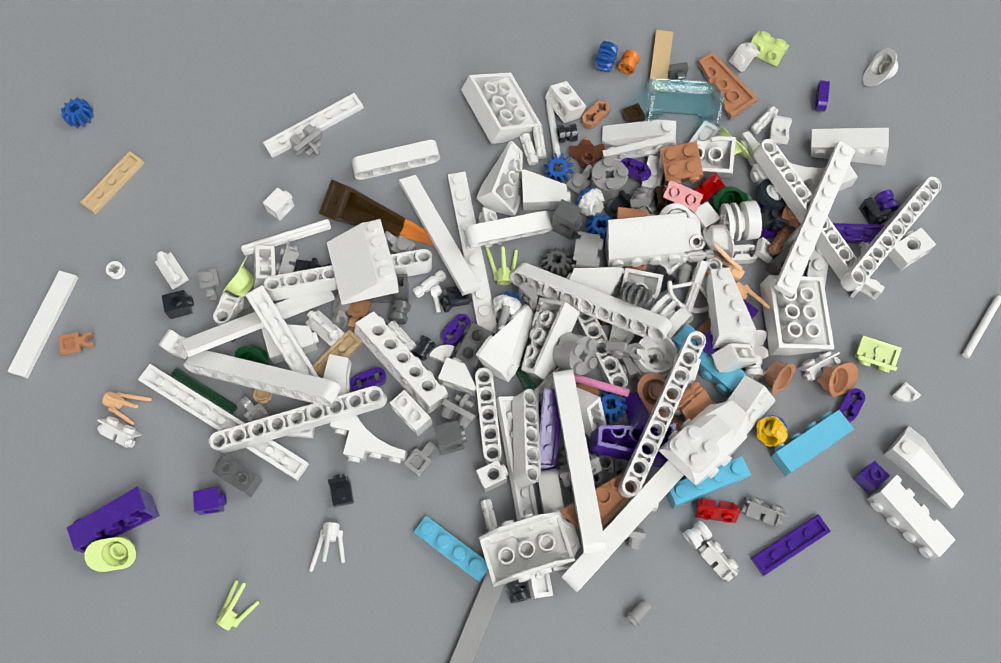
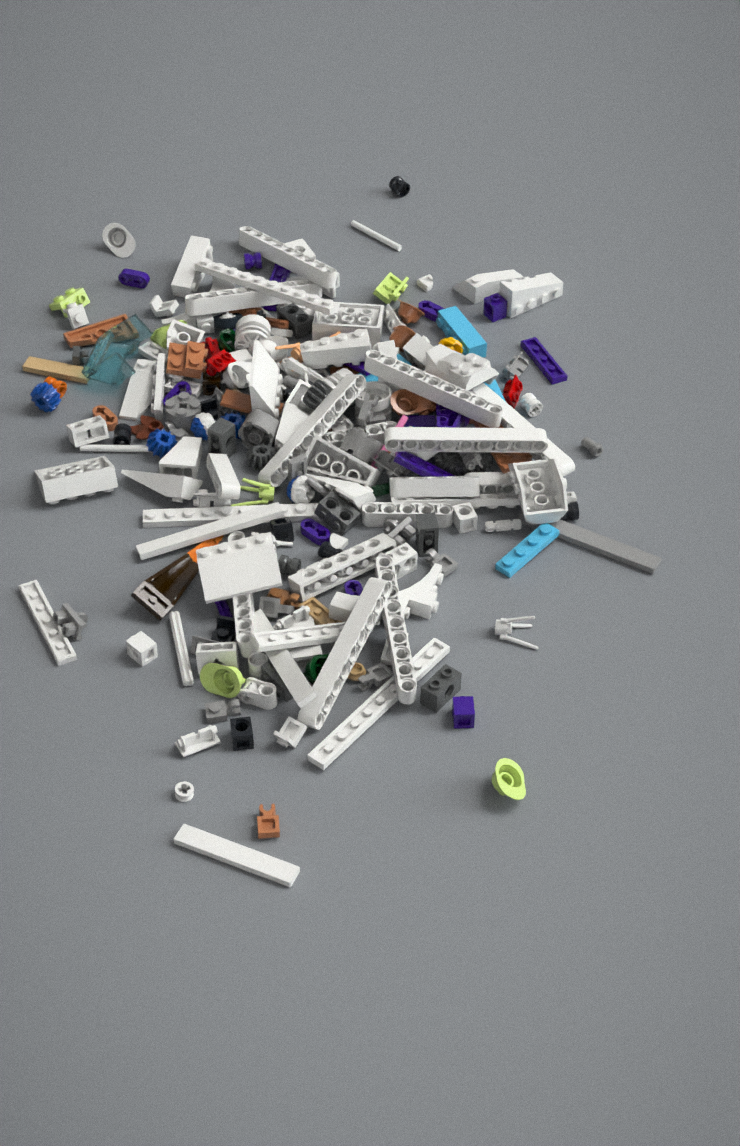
camera: 85 degrees left, 25 degrees down
(112, 182) = (67, 795): tan tile -> none
(113, 519) = (473, 780): dark purple wedge -> none
(116, 400) = (343, 786): light nougat plant -> none
(125, 433) = (383, 779): white hinge -> none
(204, 391) = (342, 716): clear green axle -> none
(227, 616) = (577, 701): yellowish green plant -> none
(341, 490) = (463, 620): black bracket -> none
(395, 159) = (114, 558): white beam -> none
(456, 376) = (364, 529): white slope -> none
(529, 149) = (131, 465): white axle -> none
(539, 142) = (125, 458): white axle -> none
(633, 113) = (114, 392): dark brown plate -> none
(642, 197) = (212, 390): light grey plate -> none
(715, 553) = (557, 392): white hinge -> none
(764, 120) = (146, 316): white axle -> none
(872, 213) = (260, 268): black bracket -> none

